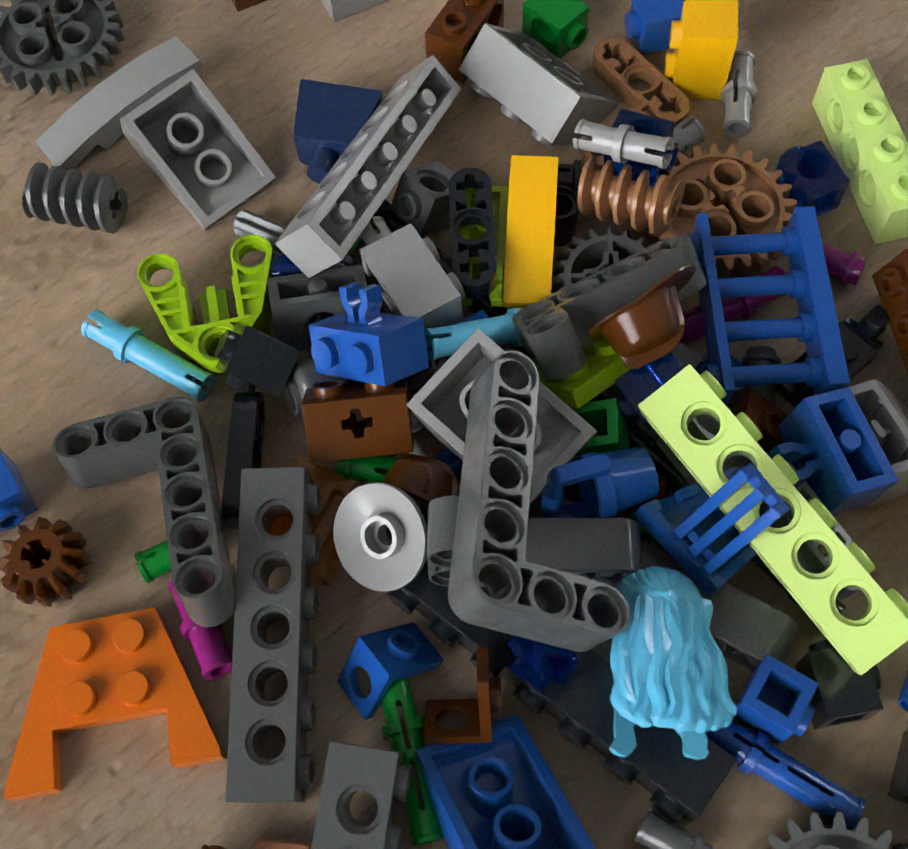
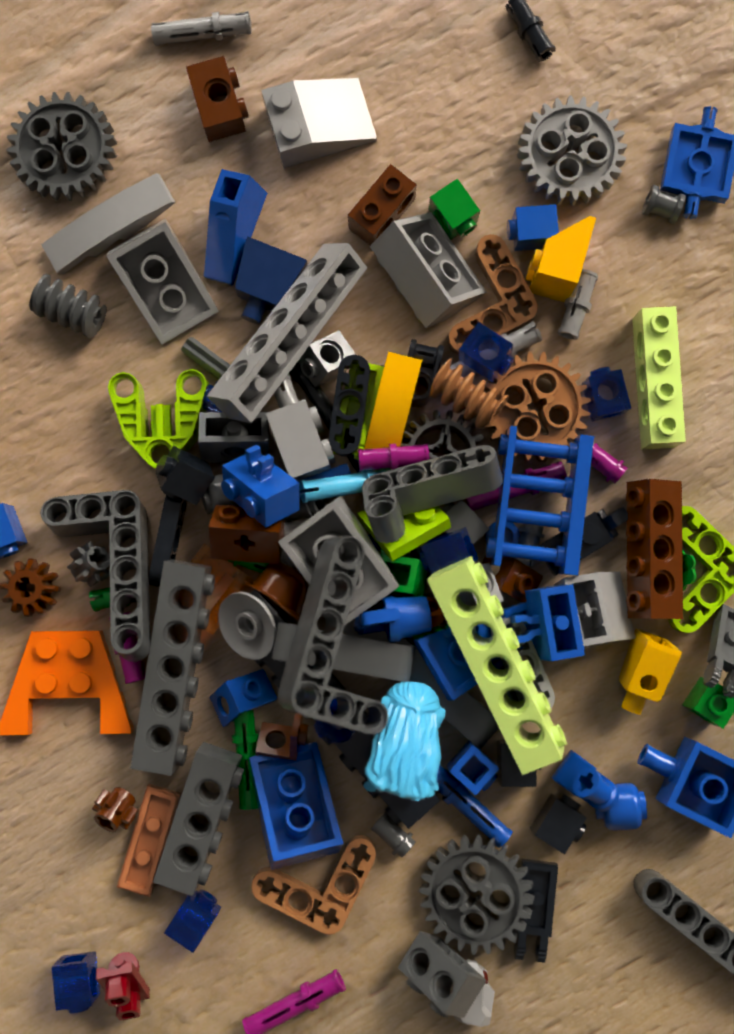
camera: 10 degrees right, 20 degrees up
(132, 346) = (99, 435): medium azure pin -> none
(132, 511) = (90, 564): none -> dark grey gear
(278, 58) = (231, 219): none -> blue slope
(540, 284) = (392, 456): none -> magenta pin
(623, 143) = (470, 361): light grey pin -> none
(648, 325) = (450, 521): reddish brown piece -> none
(704, 541) = (453, 674): blue tile -> none

